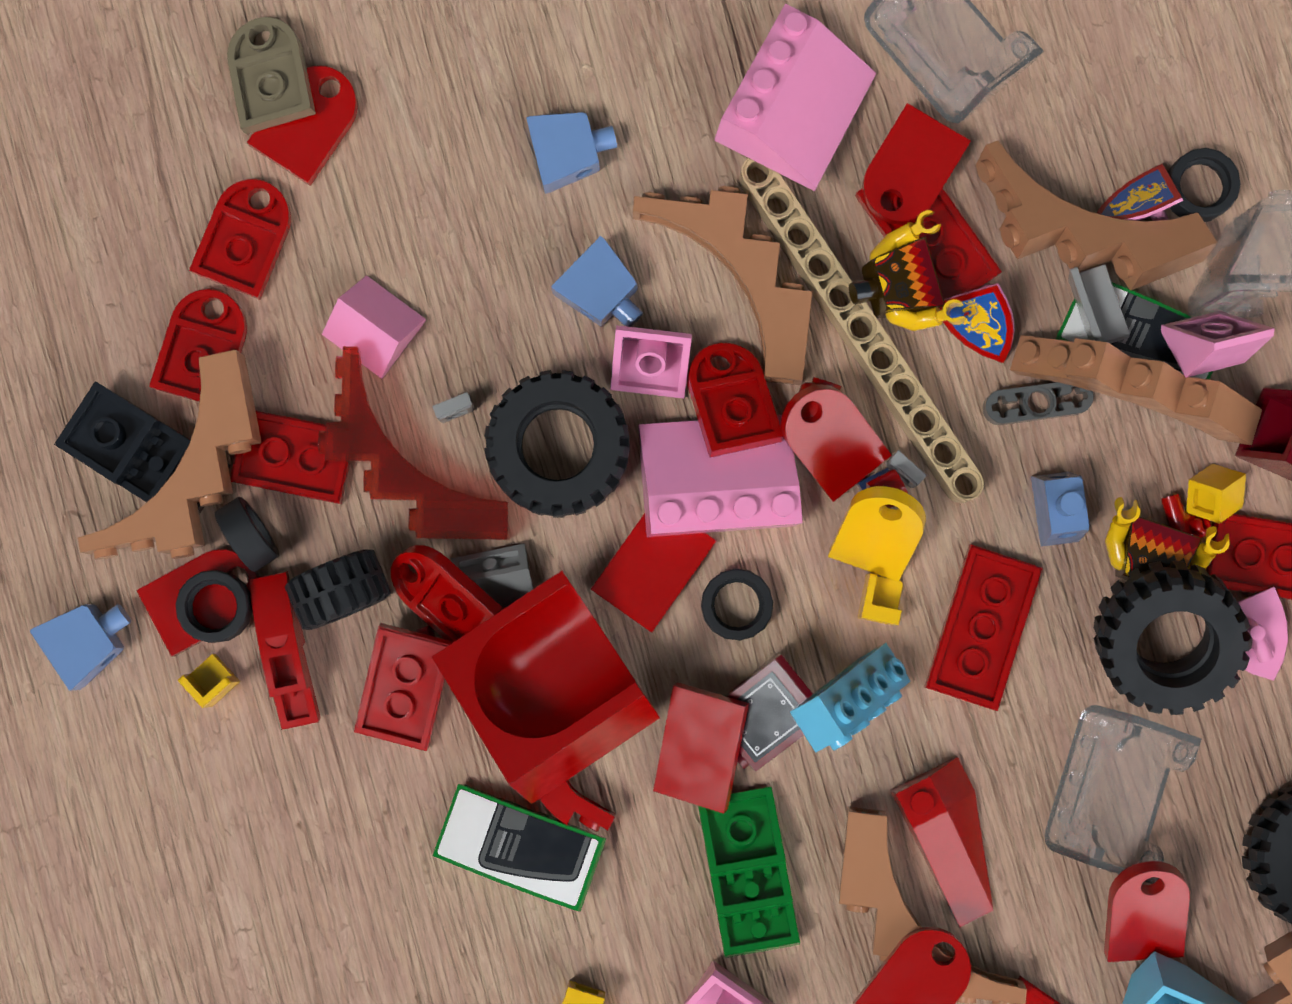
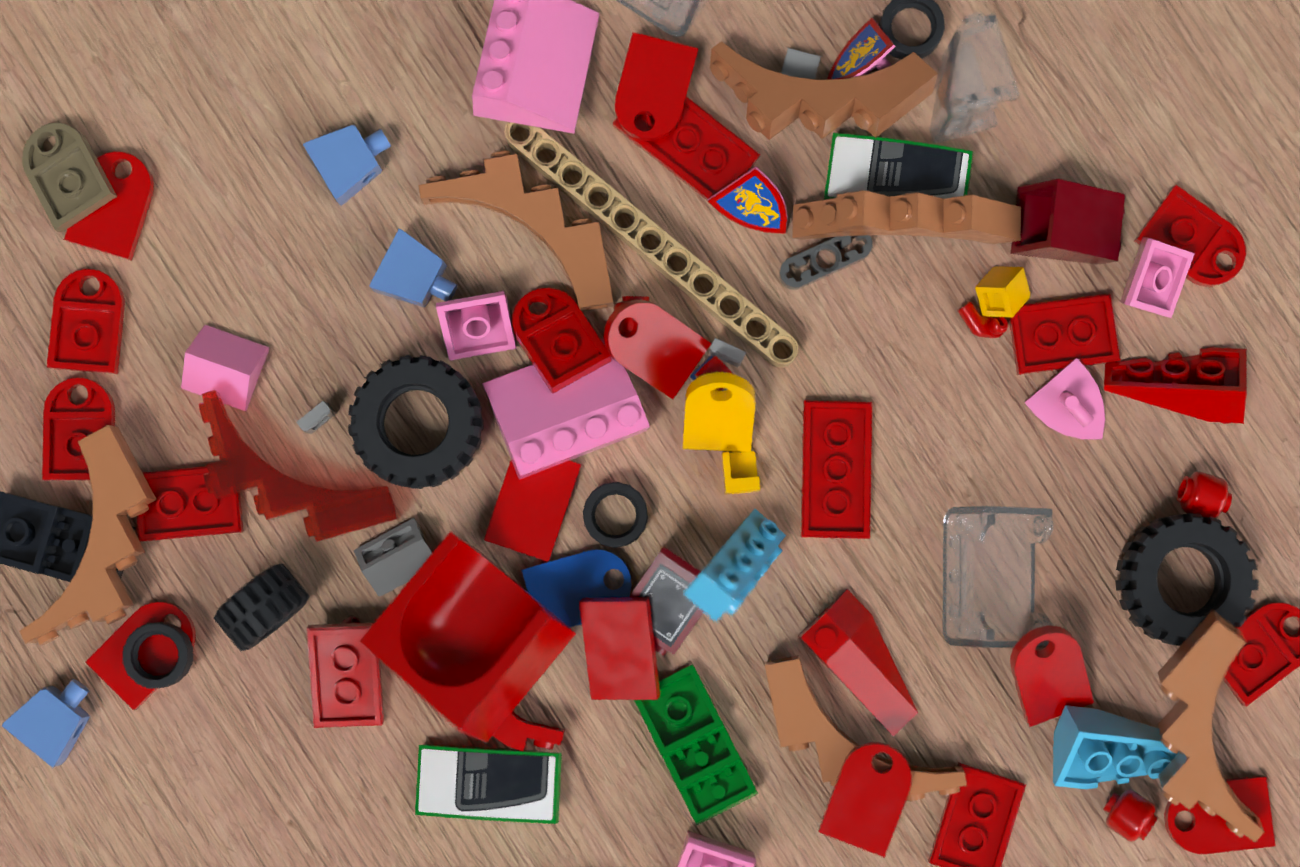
camera: 15 degrees left, 0 degrees up
(209, 681) = (173, 722): yellow panel -> none
(246, 534) = (167, 583): black tyre -> none
(282, 651) = (230, 677): red slope -> none
(440, 592) = (352, 582): red tile -> none
(669, 658) = (567, 580): none -> blue tile
(903, 280) = (675, 189): torso -> none
(1060, 508) = (871, 346): medium blue torso -> none
(1073, 189) = (800, 64): none -> light grey tile
(1098, 304) = (851, 158): light grey panel -> none
(1137, 541) = (966, 360): torso -> none
(1192, 678) = (1022, 463): black tyre -> none
(1214, 341) = (959, 161): bright pink slope -> none

